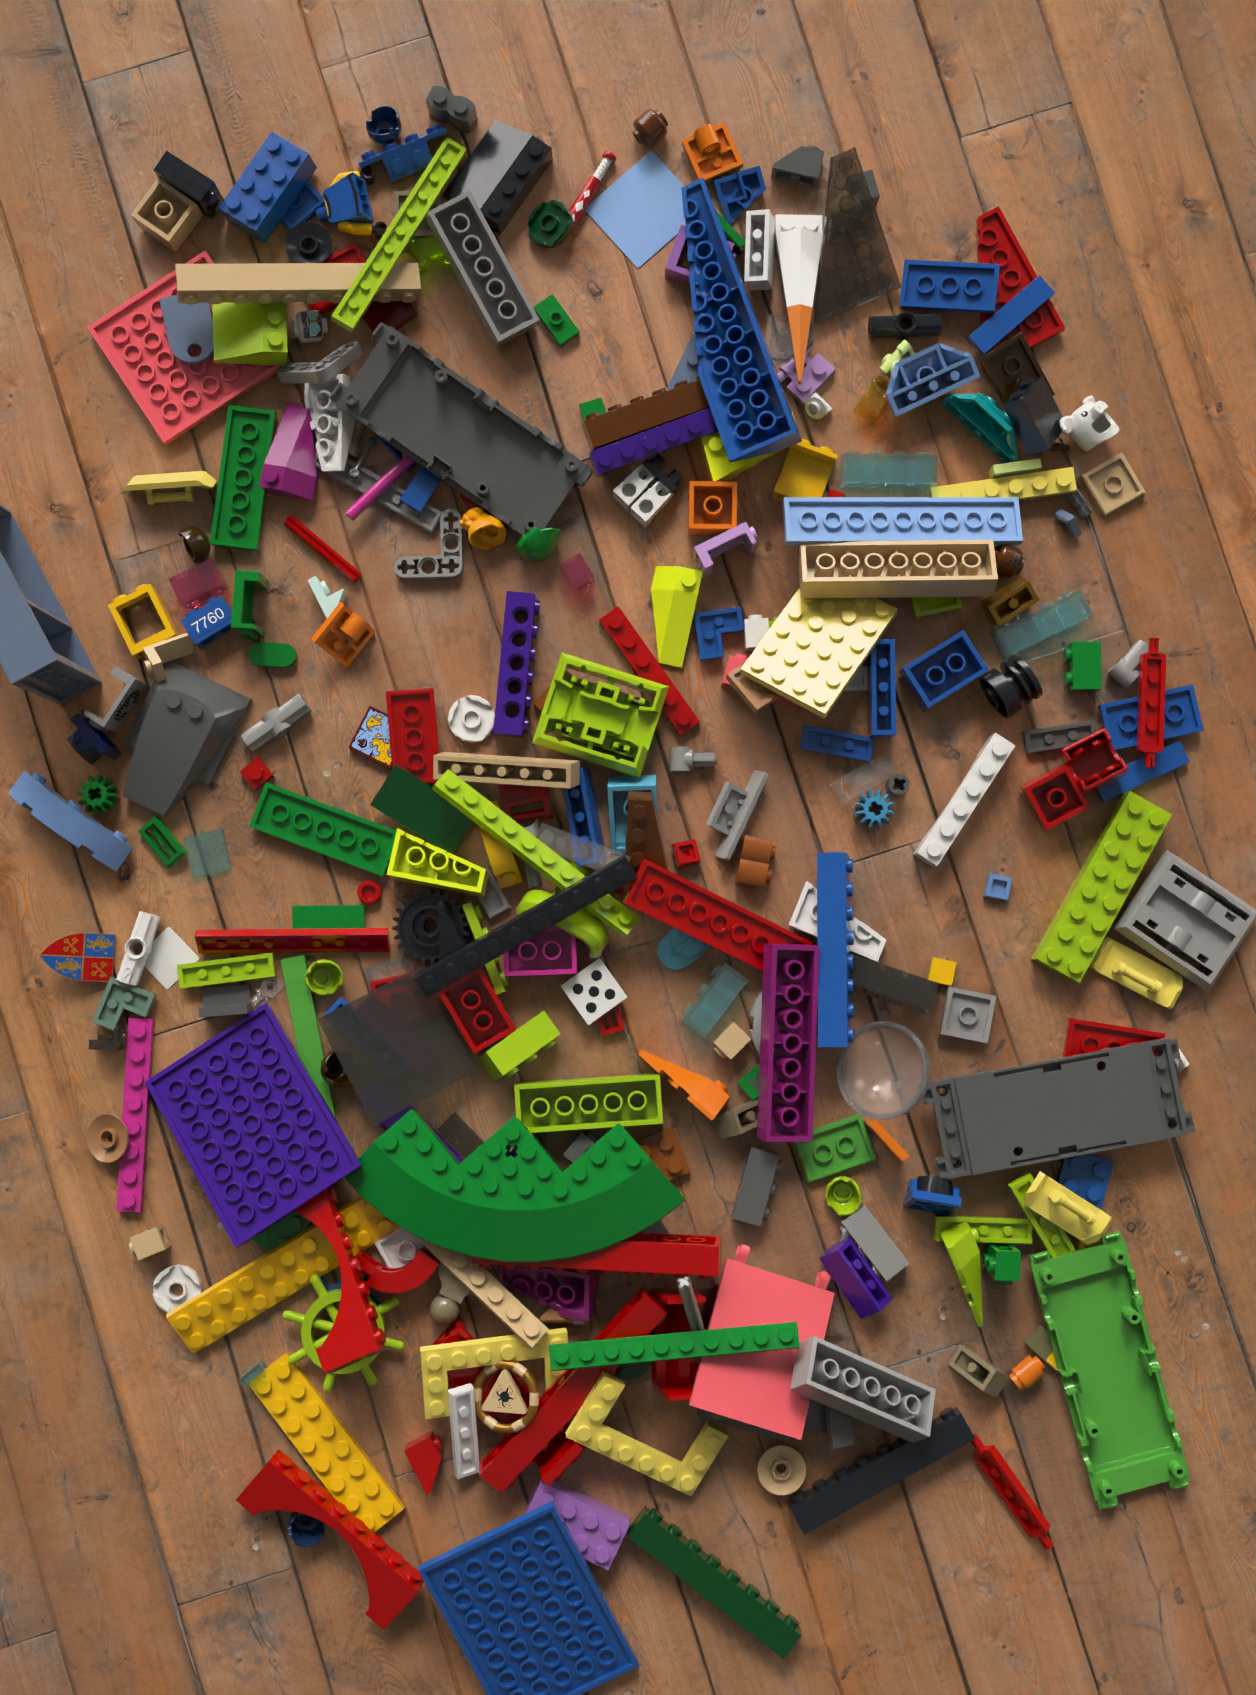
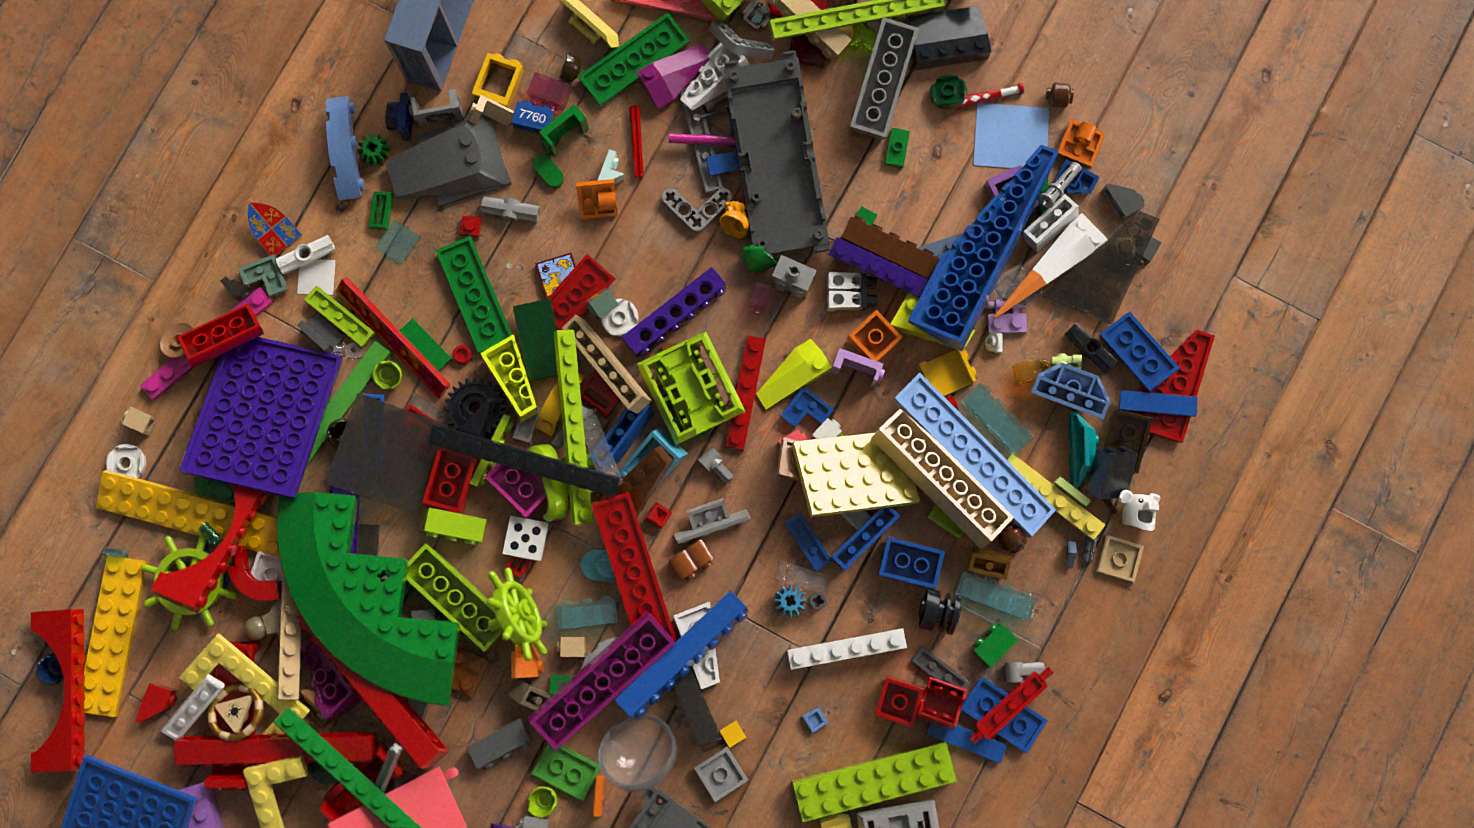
camera: 40 degrees right, 5 degrees down
(141, 1095) = (220, 335): none -> red brick
(322, 1271) = (211, 534): none -> clear green pin
(446, 721) = (601, 303): none -> sand green brick
(587, 527) = (793, 277): none -> light grey brick
(658, 1063) = (516, 614): none -> lime piece
(731, 185) = (1051, 194): none -> light grey pin

